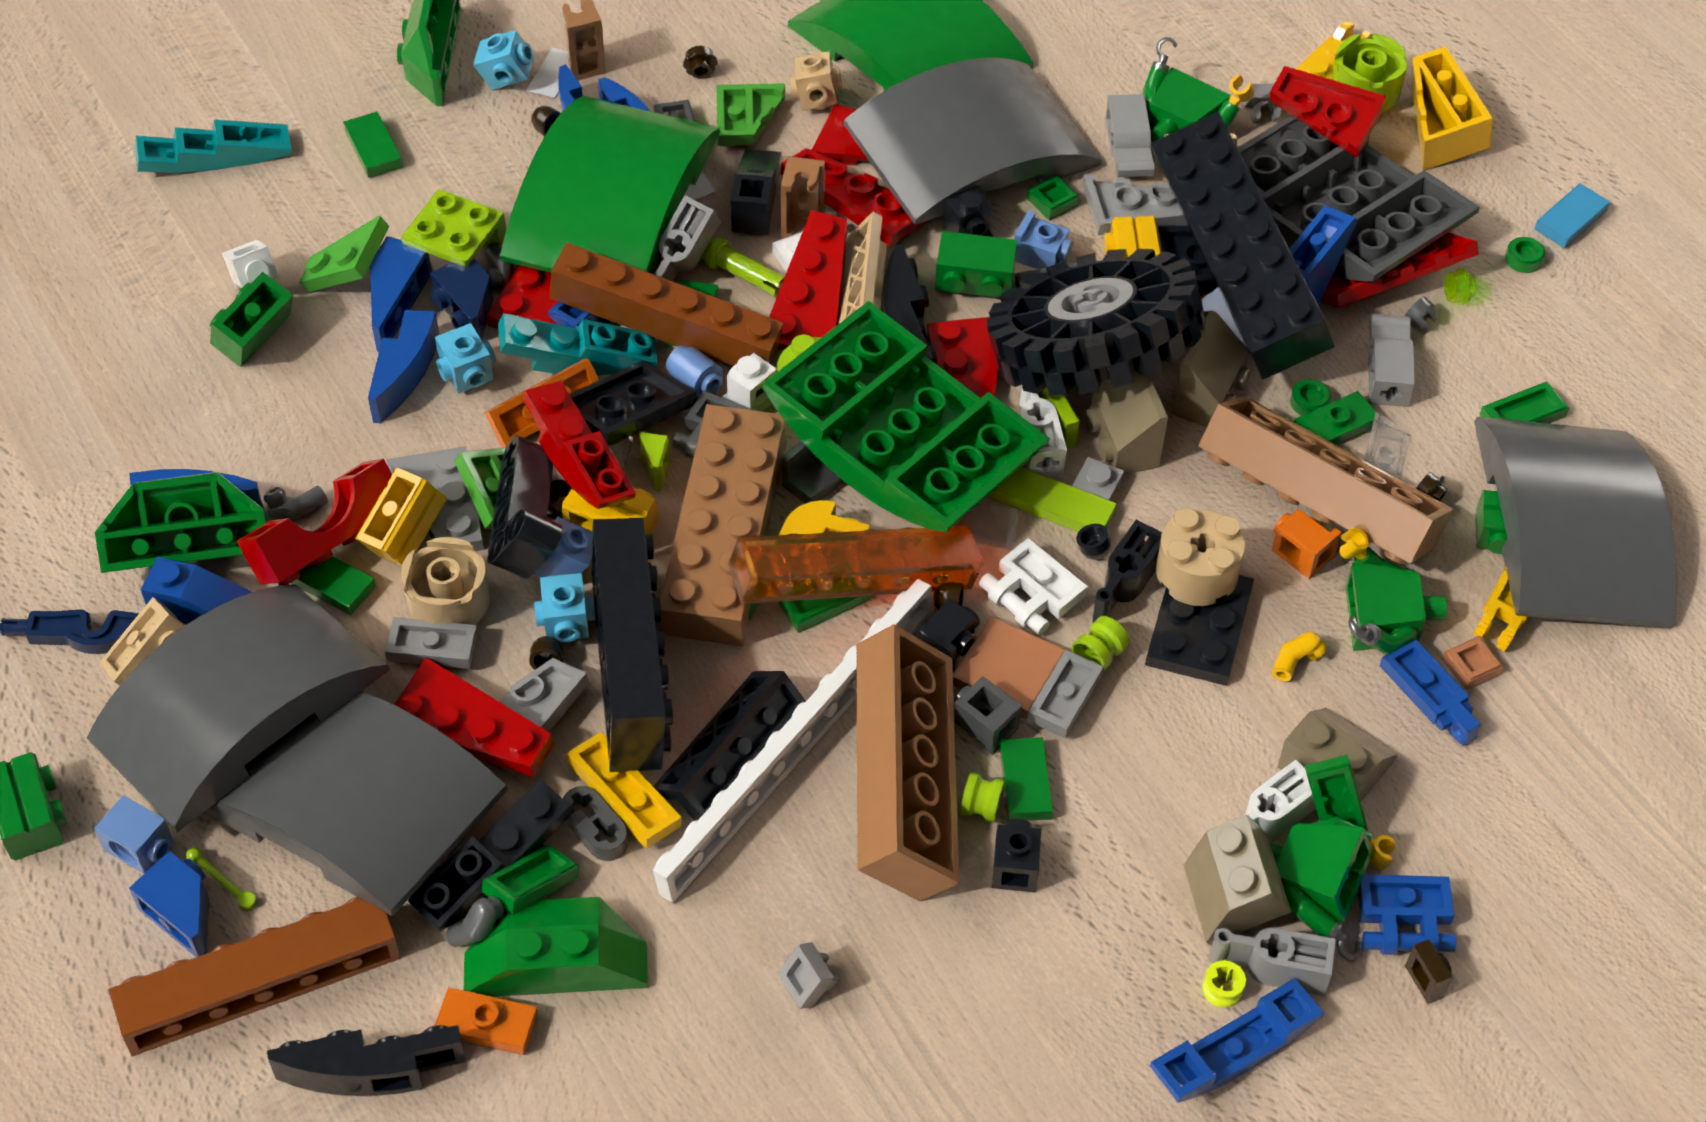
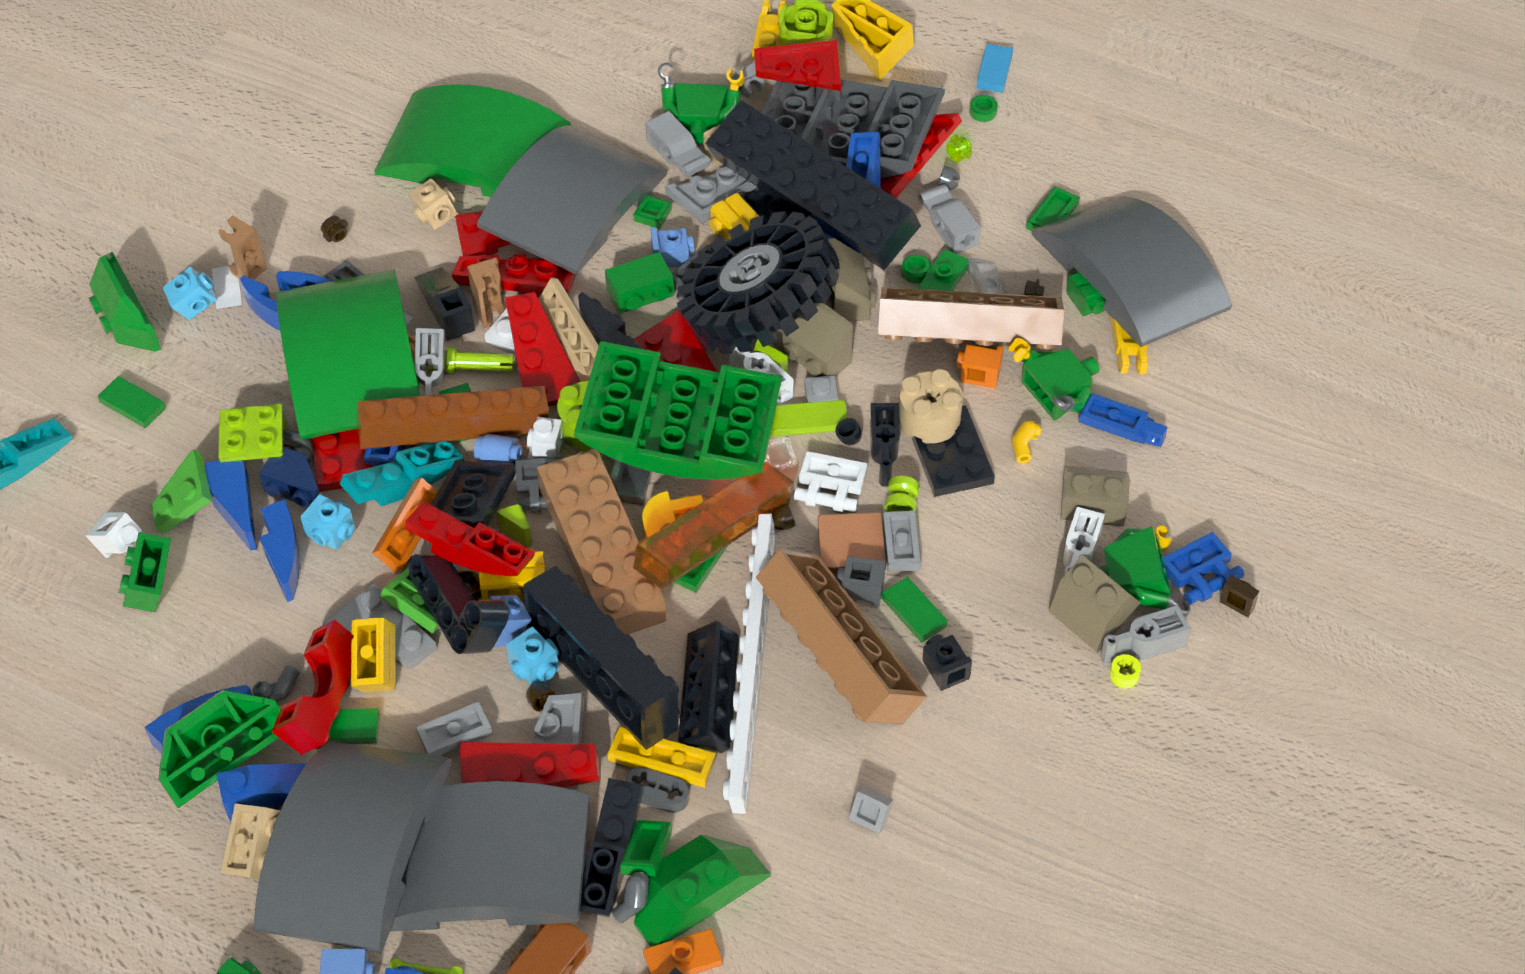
camera: 30 degrees left, 0 degrees up
(70, 629) = (180, 860): dark blue piece -> none
(446, 582) = (438, 683): tan brick -> none
(543, 118) = (252, 323): dark brown hinge -> none
(746, 111) = (394, 248): bright green wing -> none
(951, 630) = (801, 535): black brick -> none
(968, 213) = (609, 251): black brick -> none
(982, 797) = (899, 634): lime wheel -> none
(1239, 1045) = (1161, 700): blue slope -> none
(1335, 790) = (1116, 512): green plate -> none
(1472, 663) = (1131, 390): nougat tile -> none

